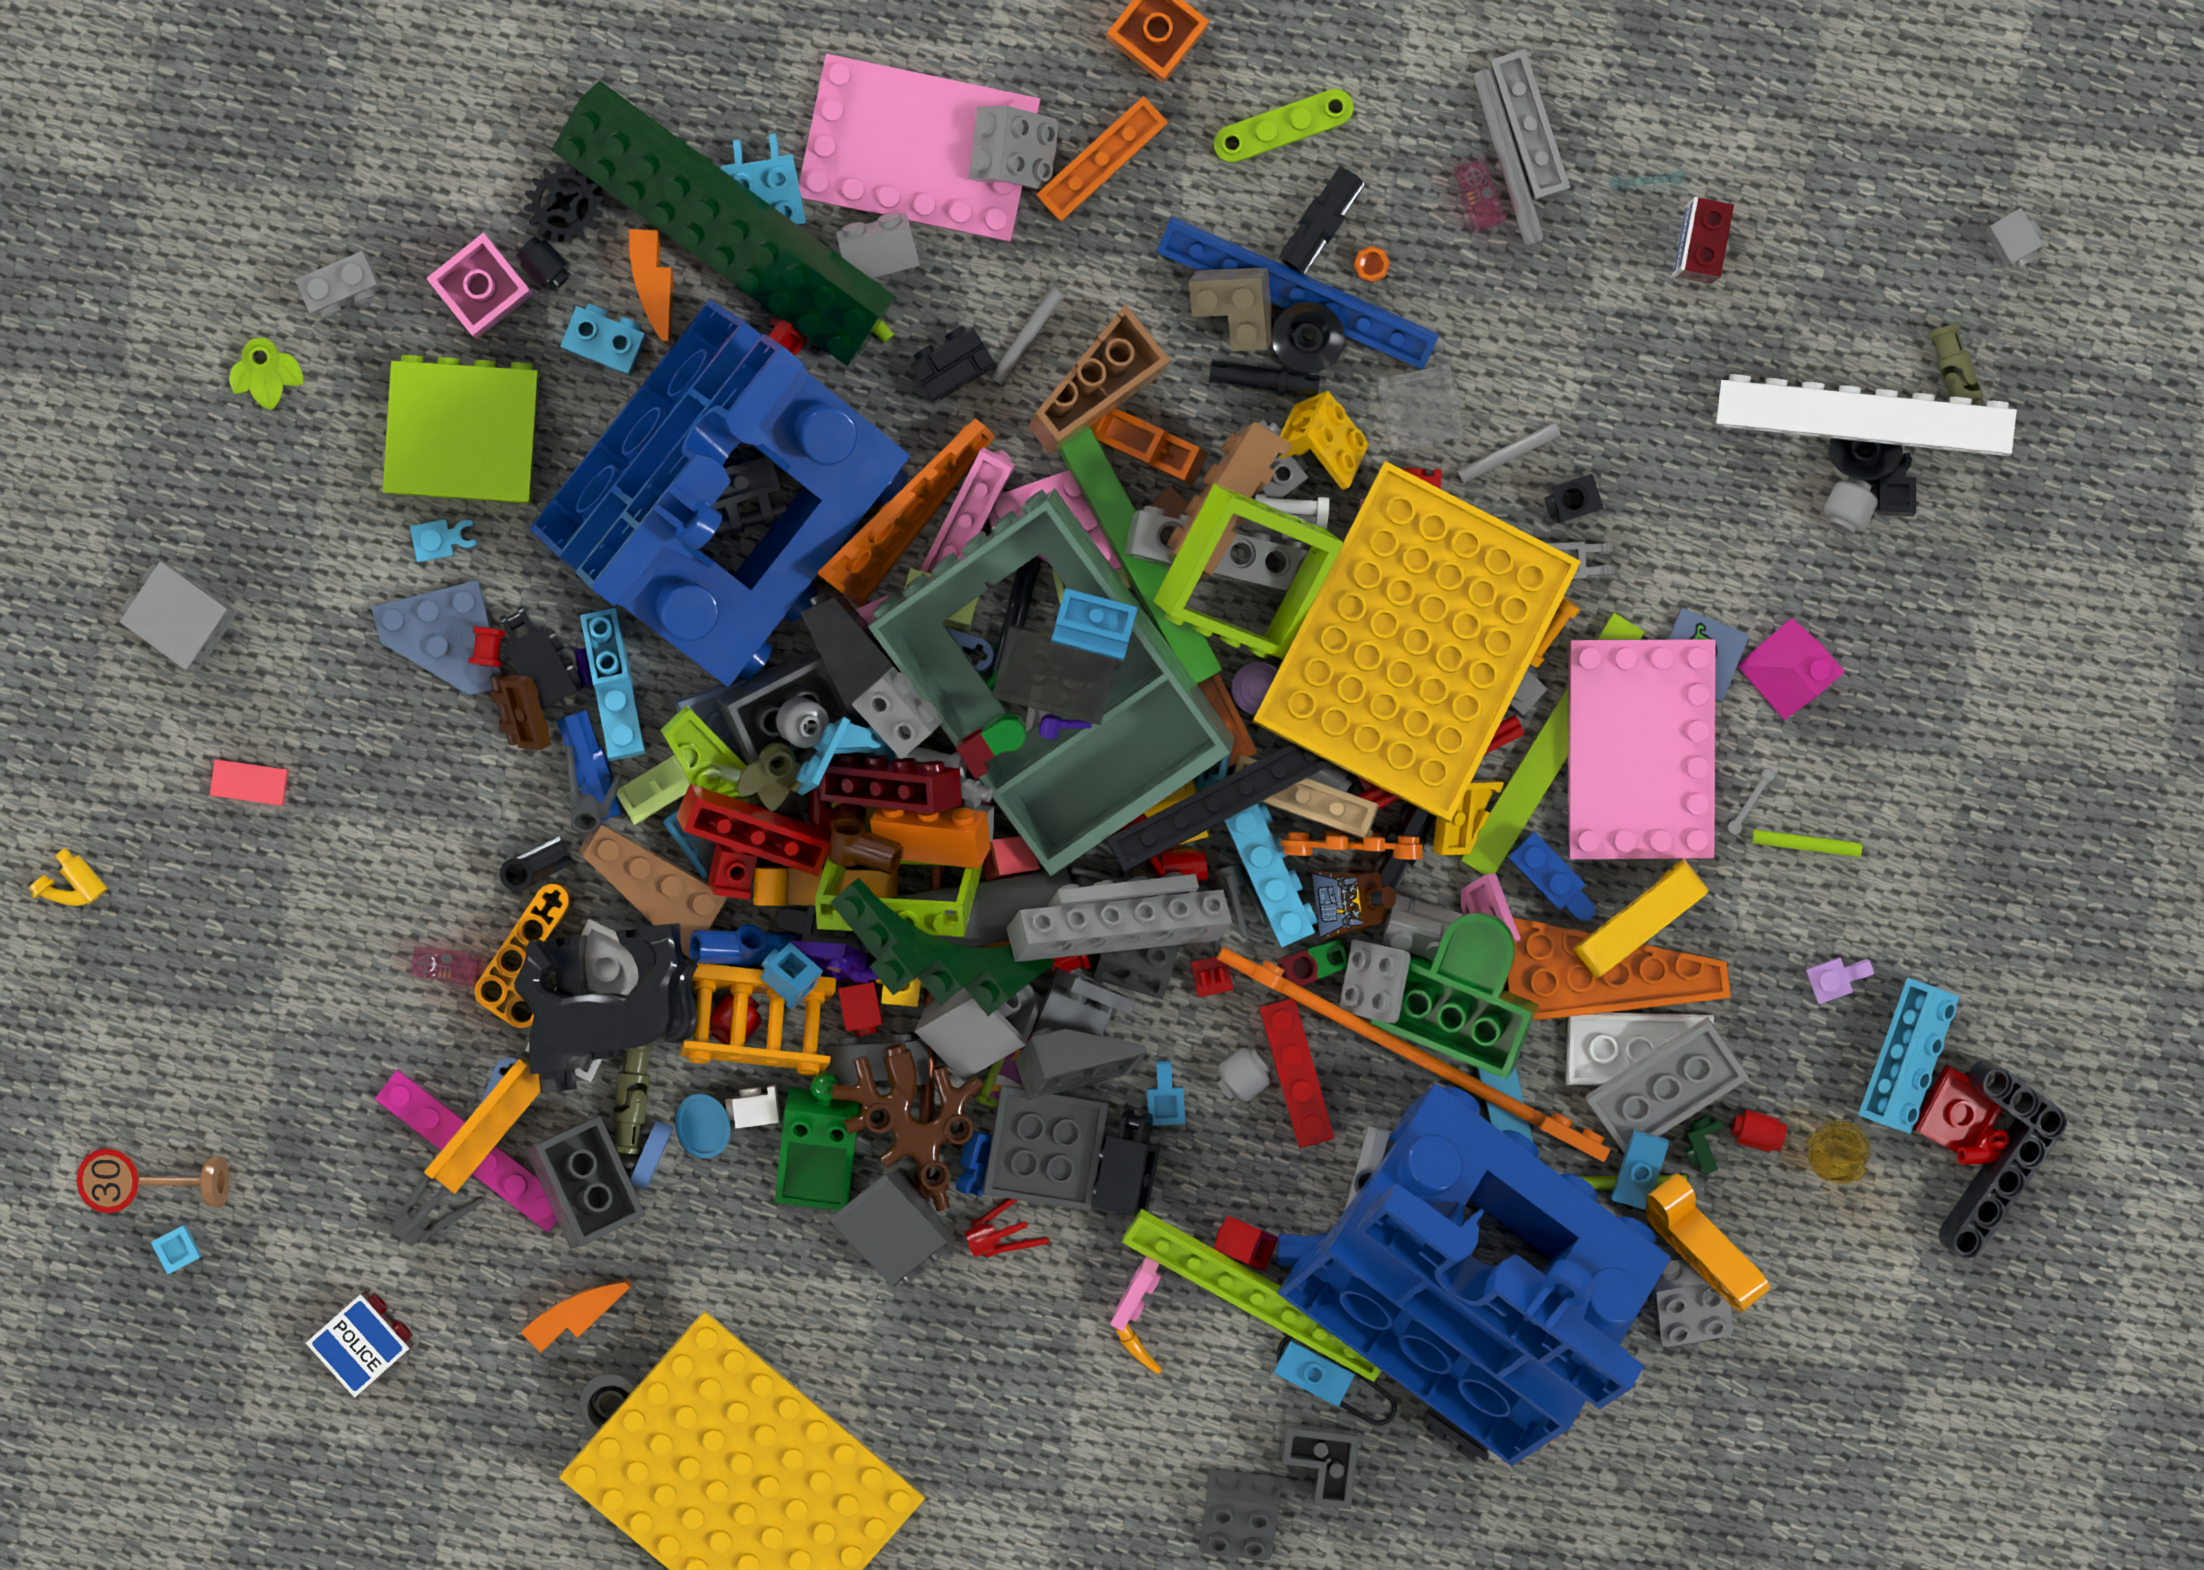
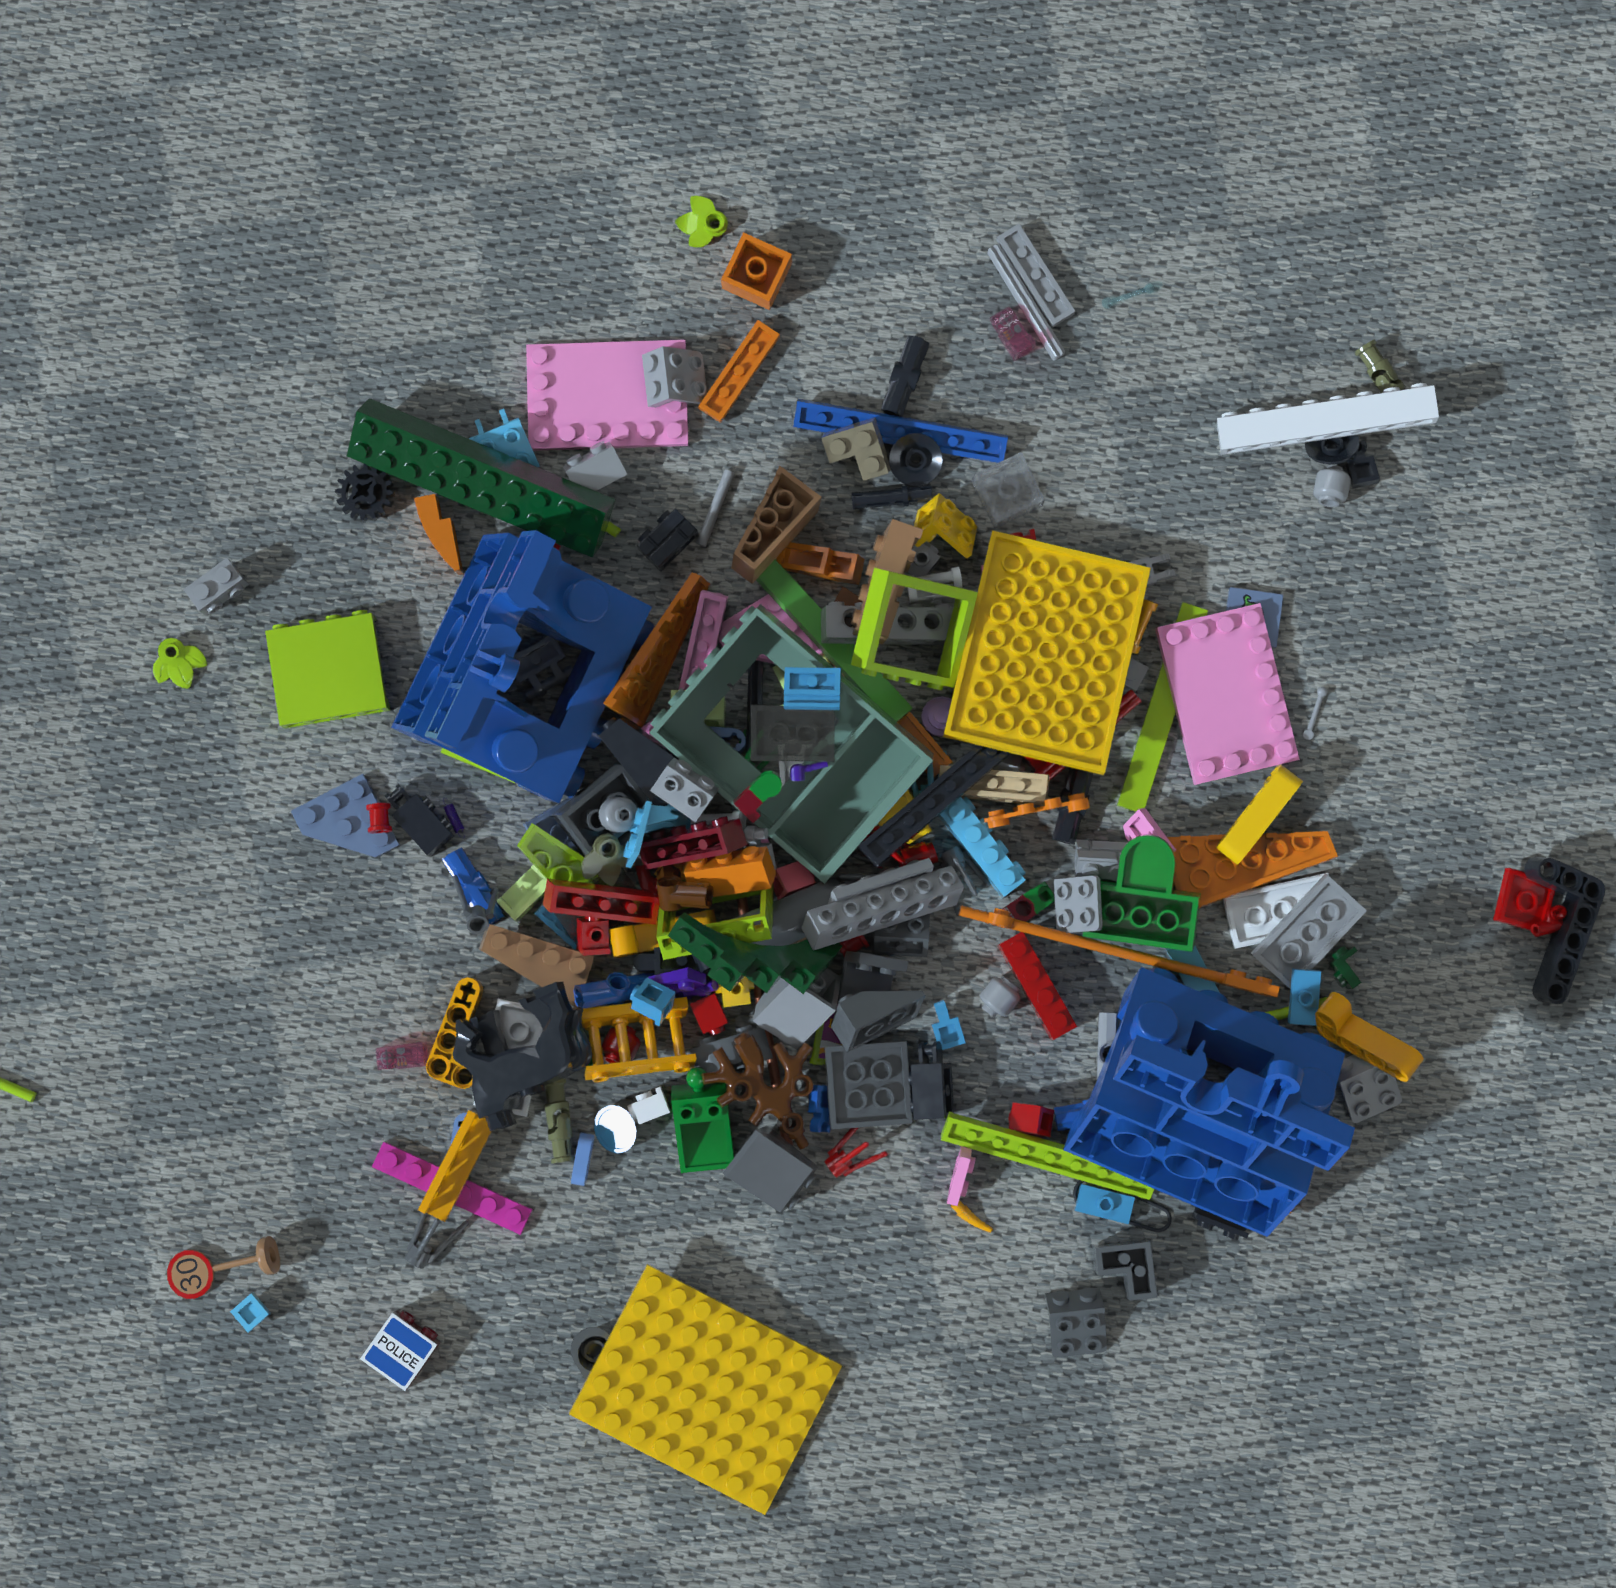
camera: 15 degrees left, 5 degrees down
(77, 872) = (122, 1055): yellow plant -> none
(177, 616) = (152, 850): light grey slope -> none
(249, 782) = (230, 958): coral tile -> none
(435, 539) = (327, 752): medium azure plate -> none
(480, 286) = (317, 563): bright pink brick -> none
(520, 711) = (413, 858): reddish brown plate -> none
(539, 863) = (452, 965): black piece -> none
(544, 263) = (359, 538): black brick -> none
(574, 1313) = (552, 1290): orange slope -> none
(585, 1182) = (538, 1190): dark grey brick -> none
(603, 339) = (414, 581): medium azure brick -> none
(613, 684) = (476, 824): medium azure slope -> none
(1211, 976) = (958, 931): red tile -> none
(1283, 126) = (861, 318): lime plate -> none
(1349, 900) = (1045, 852): torso -> none
(1371, 264) = (948, 399): orange tile -> none
(1462, 832) = (1112, 784): yellow wing -> none
(1508, 453) = (1078, 508): light grey bar -> none
(1551, 876) = (1186, 800): blue brick -> none
(1589, 495) = (1141, 520): black brick -> none
(1703, 240) = (1179, 324): dark red piece -> none
(1758, 1131) = (1383, 948): red brick -> none
(1790, 668) = (1319, 611): dark pink slope -> none
(1806, 843) = (1363, 733): lime bar -> none
(1833, 979) = (1407, 826): lavender plate -> none
(1838, 1152) = (1445, 949): clear yellow cap -> none
(1909, 1055) = (1477, 867): medium azure brick -> none
(2015, 238) = (1398, 272): light grey brick -> none

